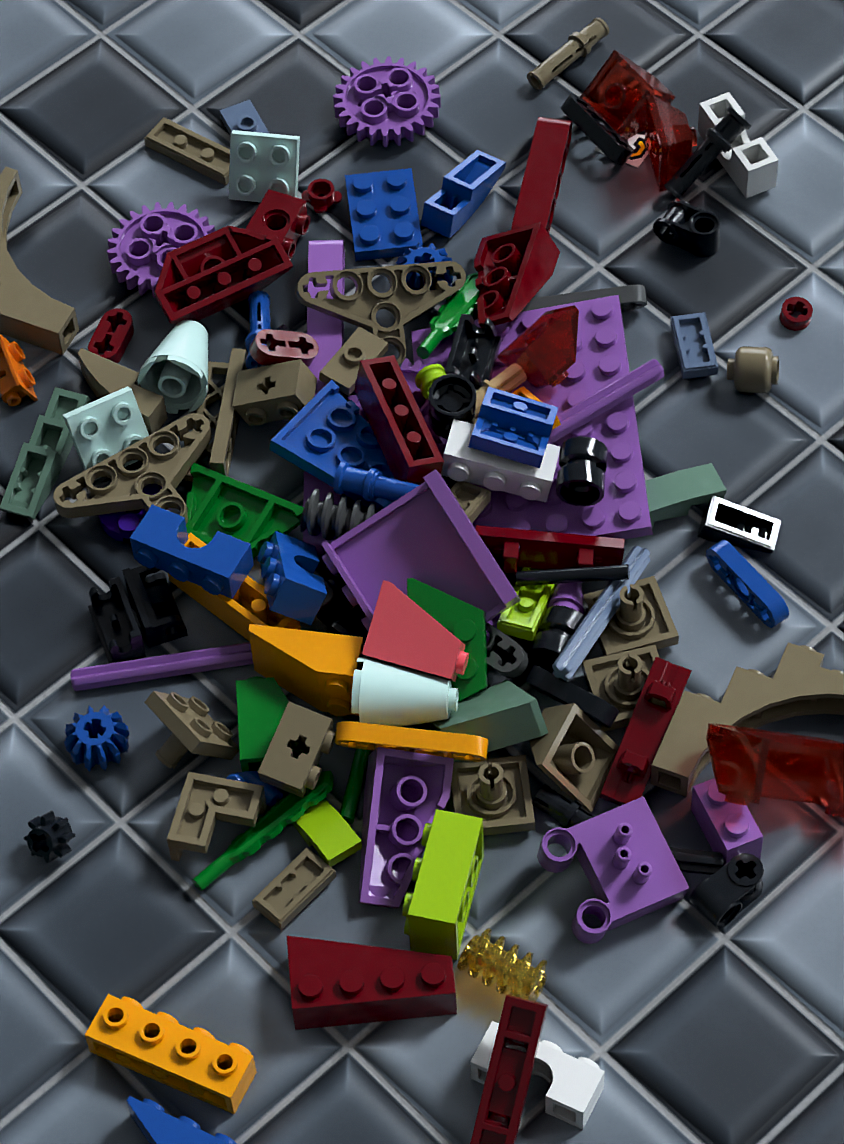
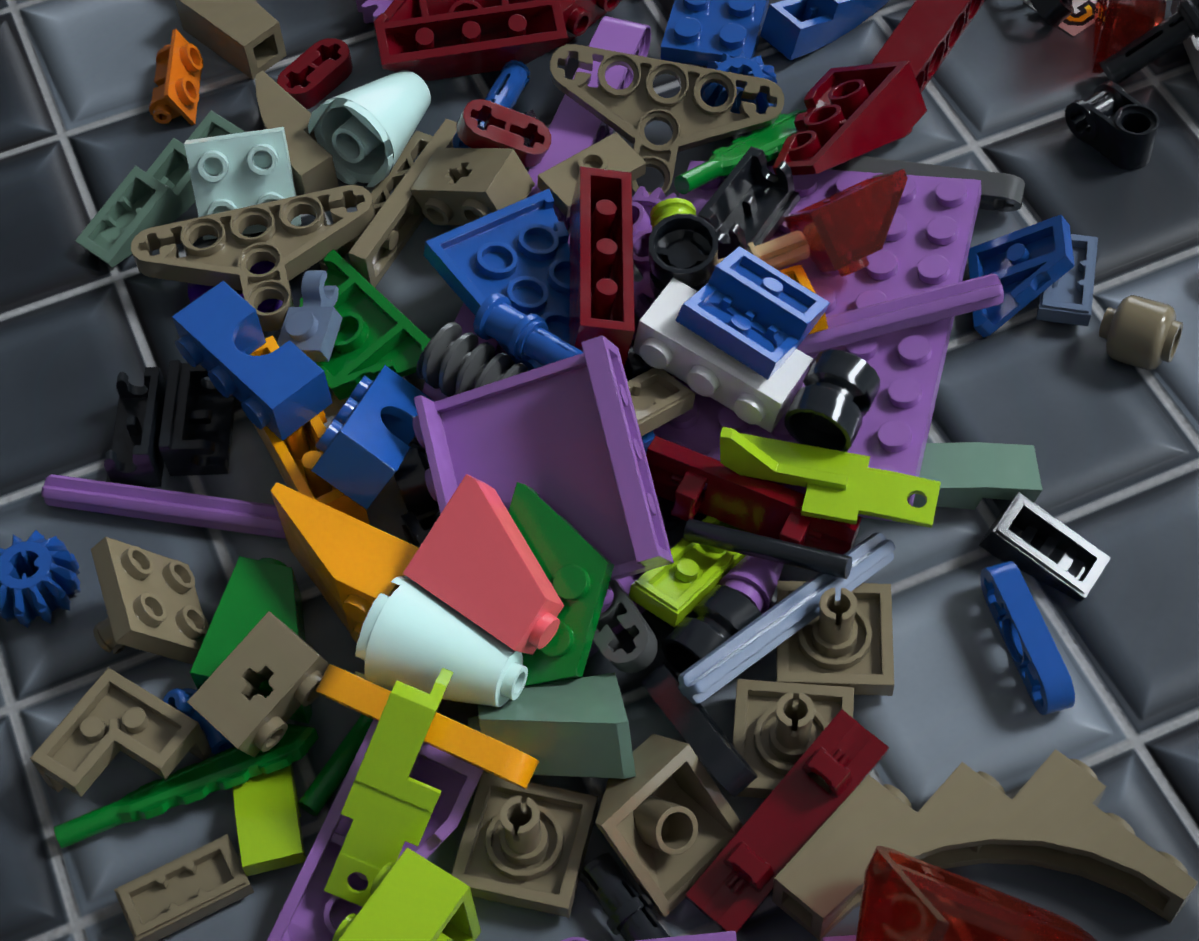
camera: 20 degrees right, 0 degrees up
(208, 515) = (317, 322): none -> sand blue plate
(406, 788) = (383, 798): none -> lime piece
(602, 520) = (836, 481): none -> lime piece
(667, 342) = (1026, 266): none -> blue wing

